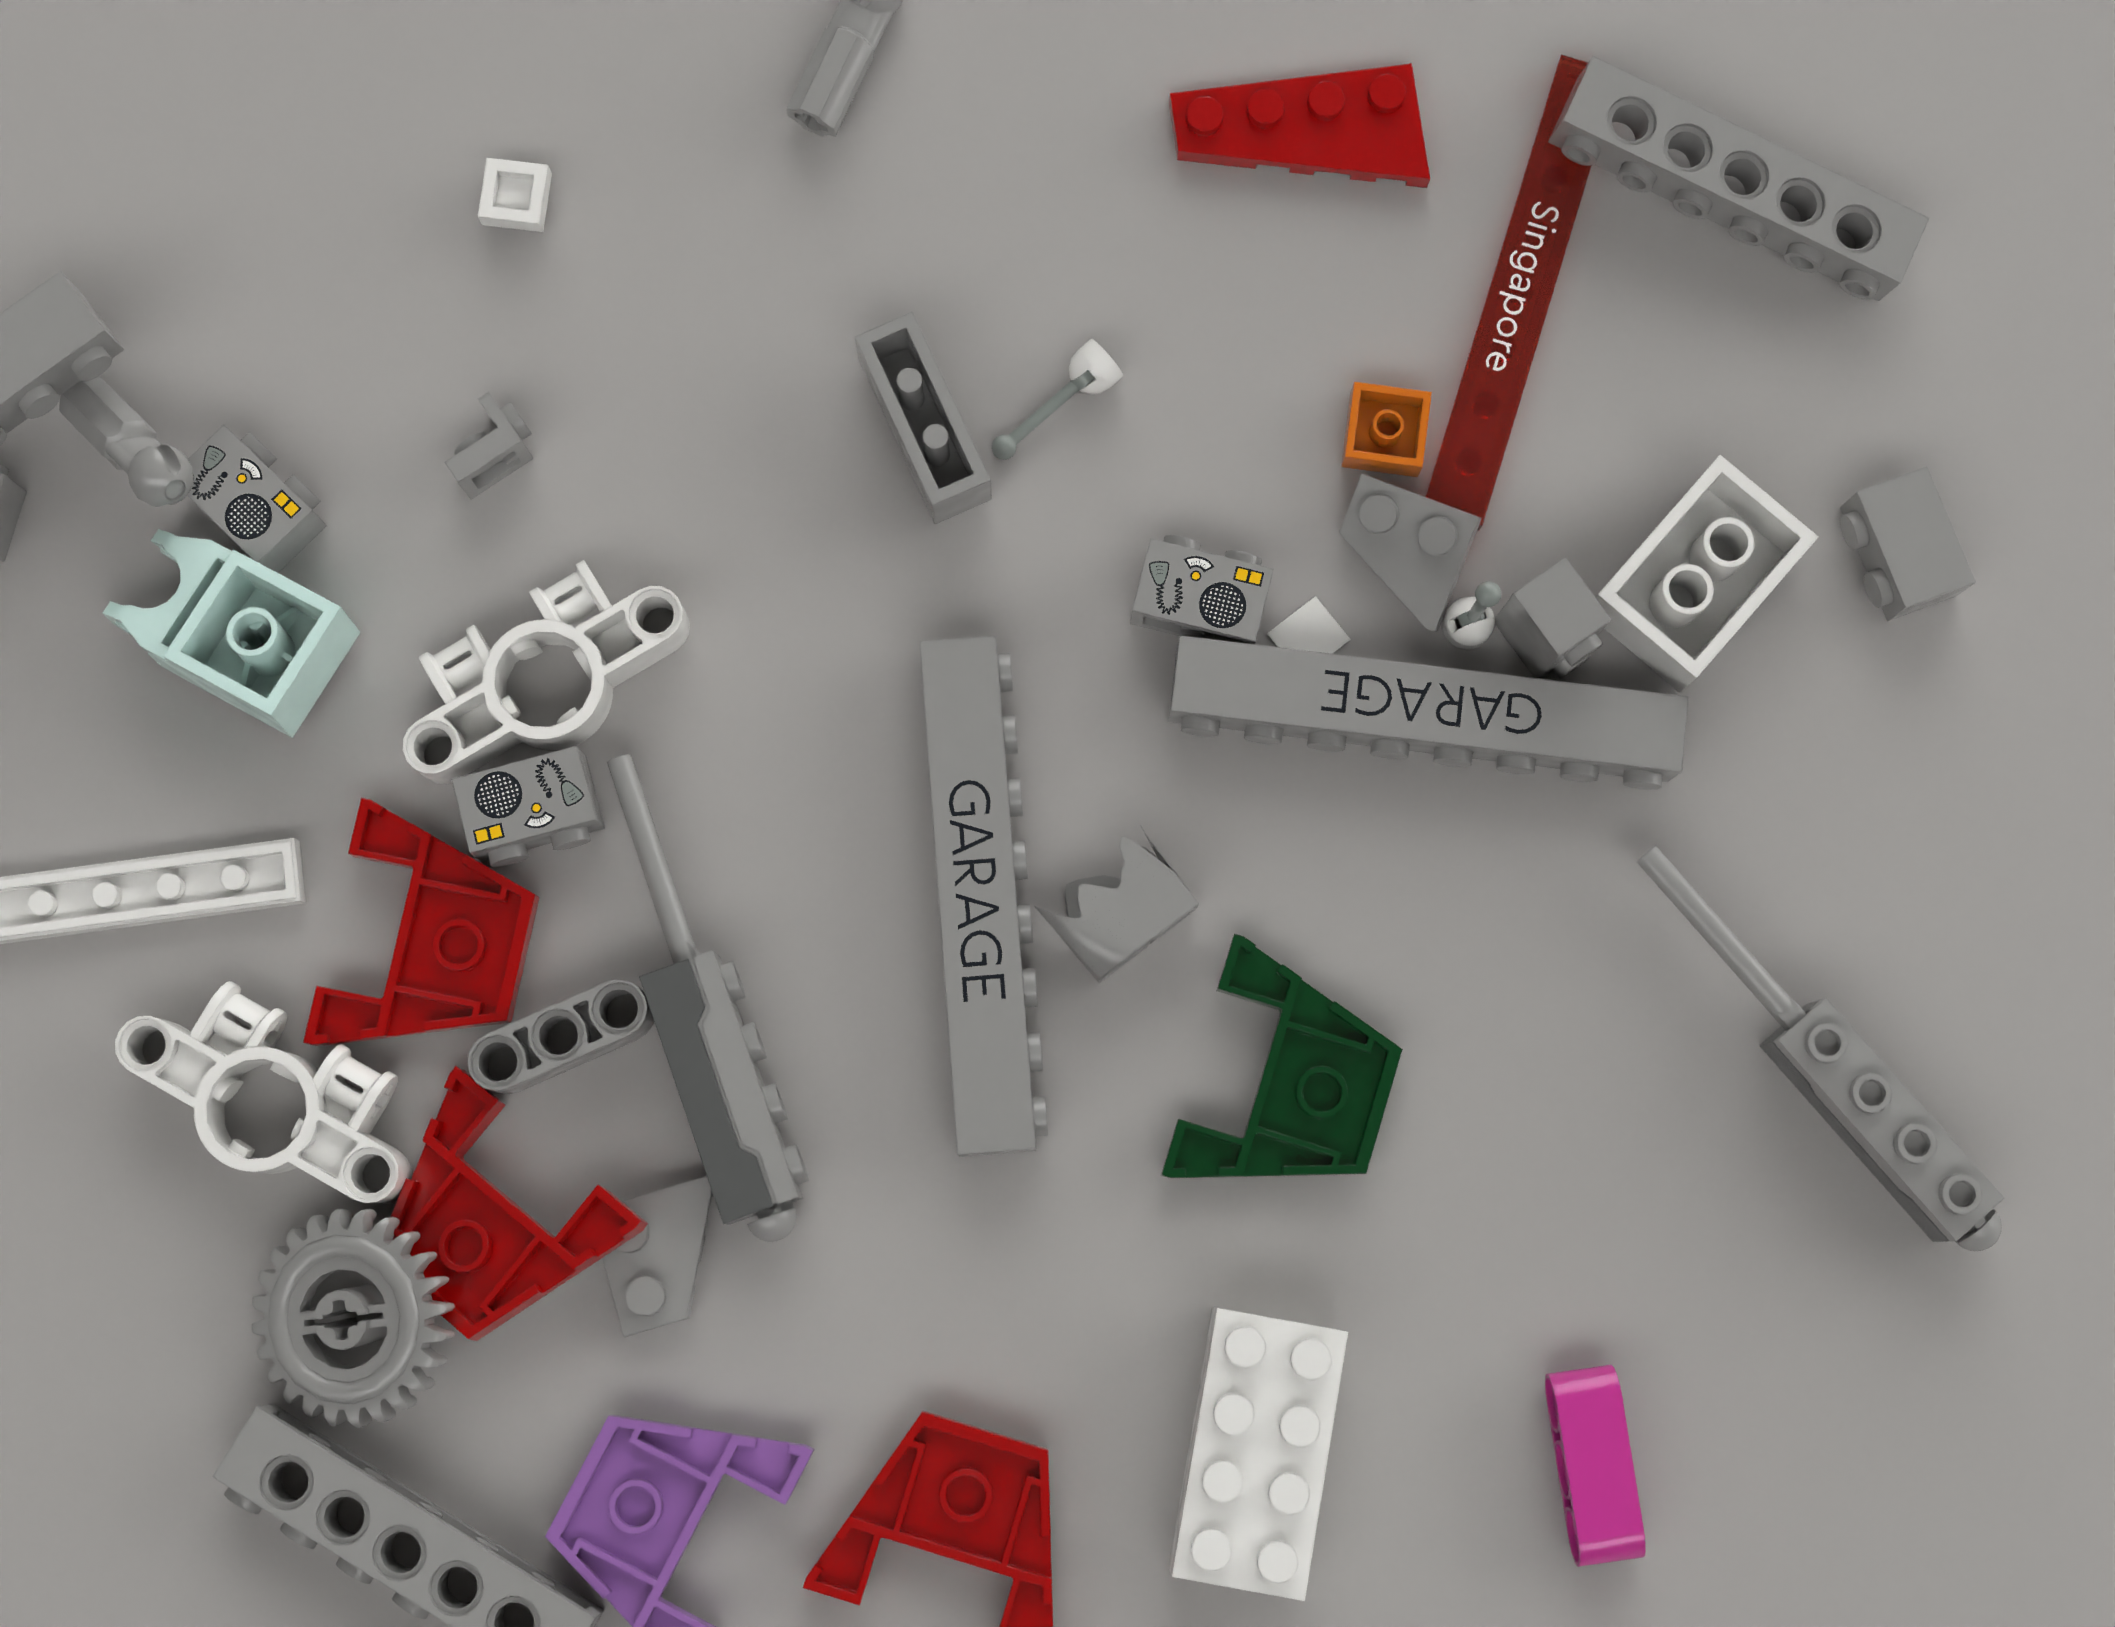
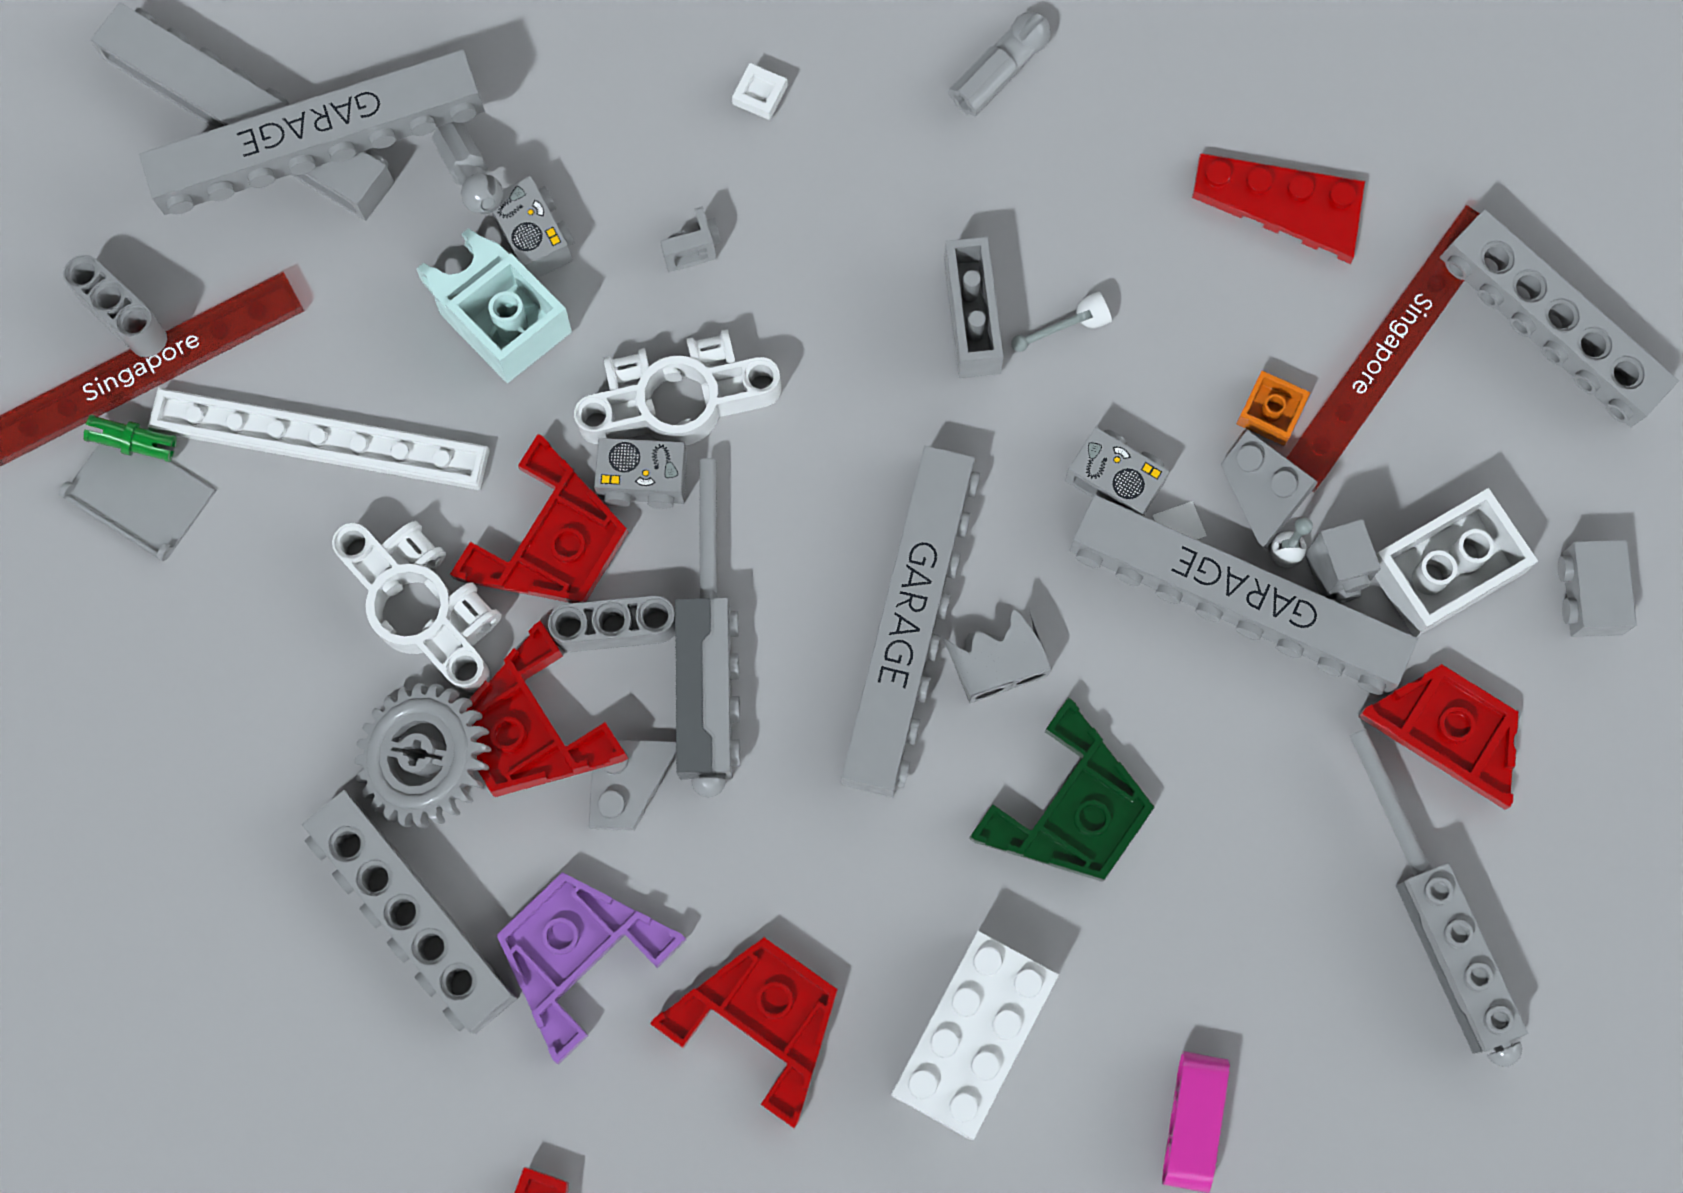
camera: 25 degrees right, 5 degrees down
(1772, 804) = (1454, 730): none -> red wing

